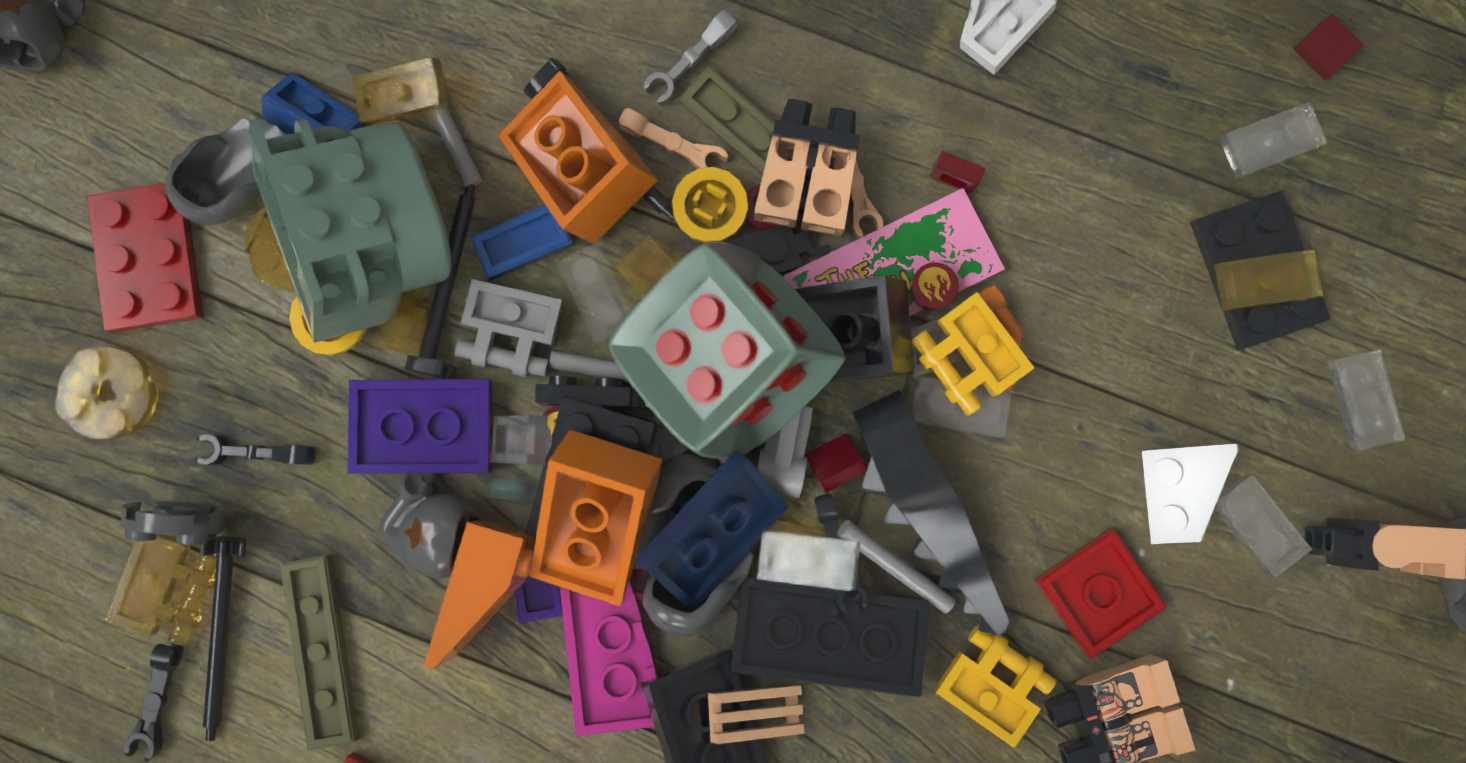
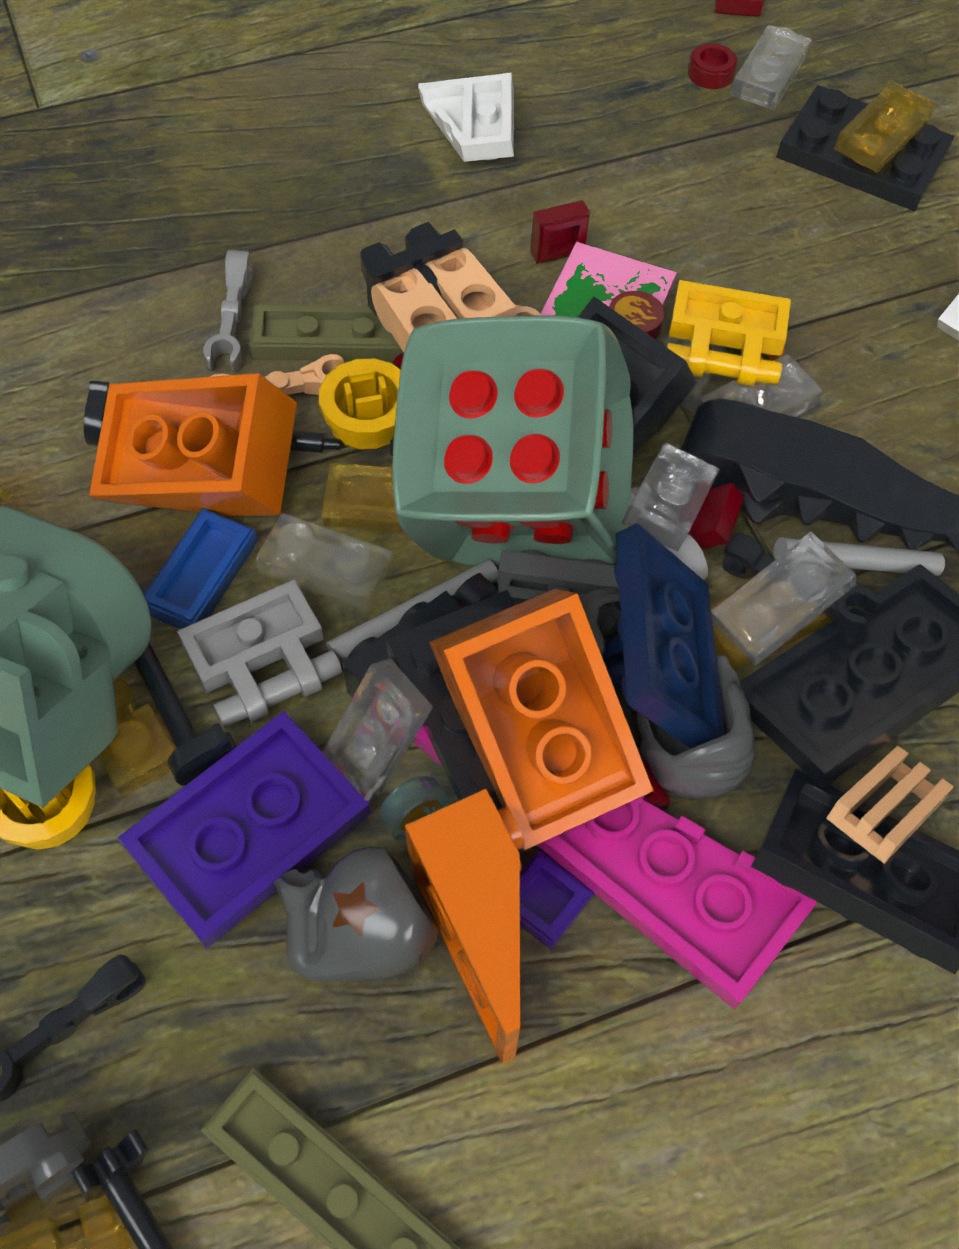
camera: 45 degrees left, 25 degrees down
(812, 441) = (671, 496): none -> clear plate
(1229, 103) = (712, 66): none -> dark red tile

